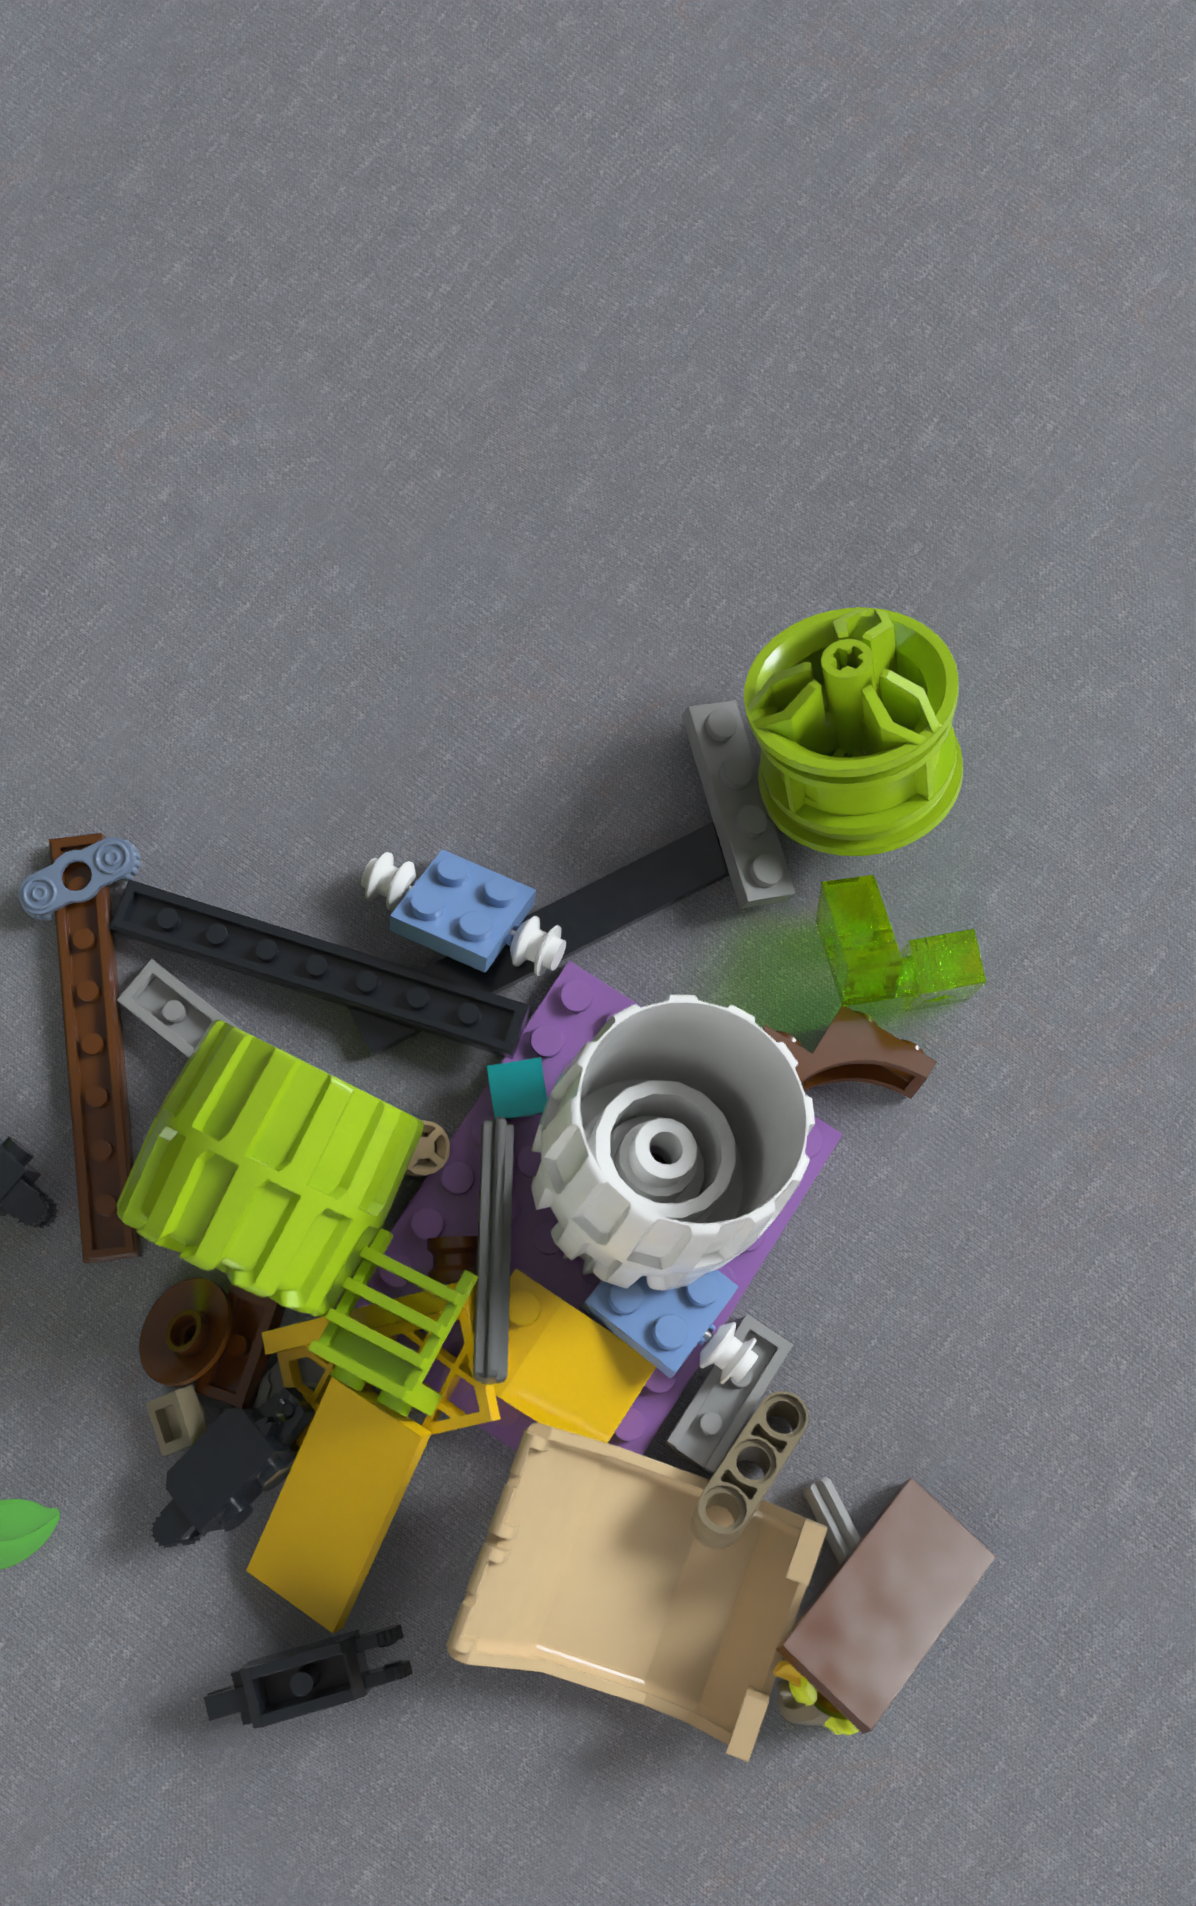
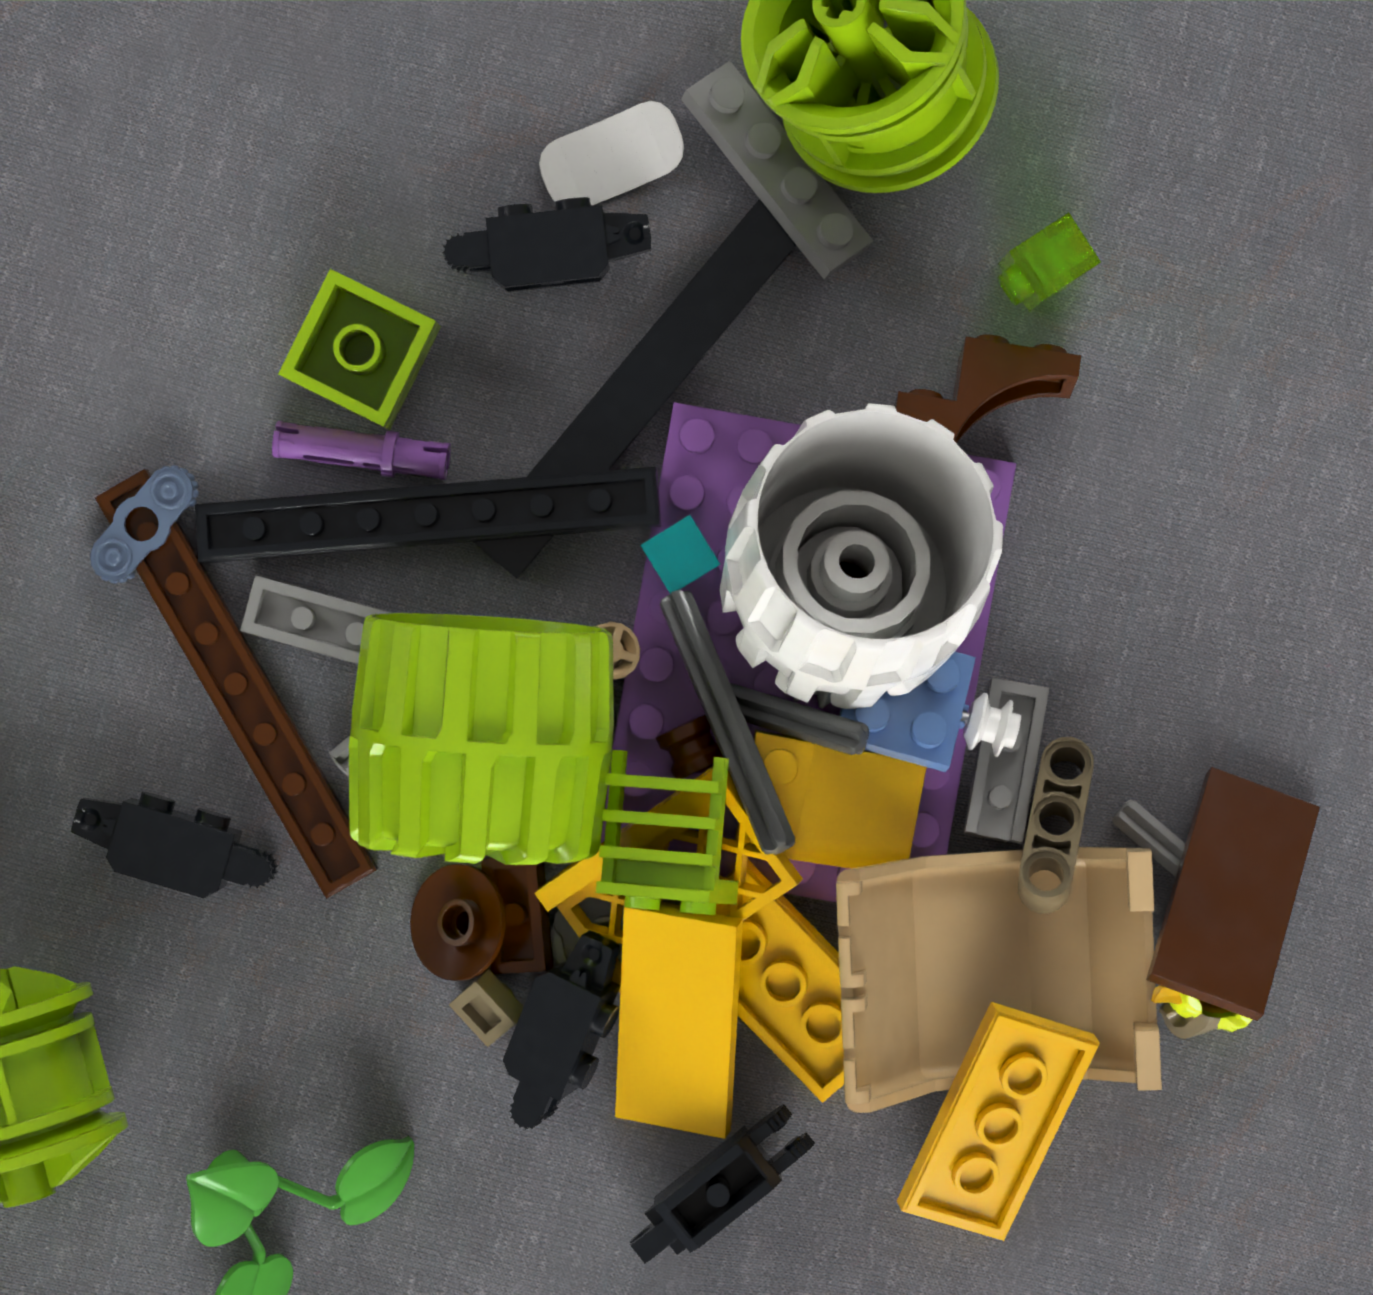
camera: 30 degrees left, 10 degrees up
(305, 901) = (372, 451): none -> medium lavender pin
(323, 805) = (359, 349): none -> lime brick
(448, 1514) = (791, 990): none -> yellow tile
(463, 911) = (548, 398): medium blue plate -> none
(519, 788) = (549, 246): none -> black hinge
(560, 1276) = (801, 721): none -> dark grey axle
(586, 1726) = (997, 1121): none -> yellow tile
(604, 739) = (613, 154): none -> white sticker
(858, 940) = (956, 265): clear neon green brick -> none

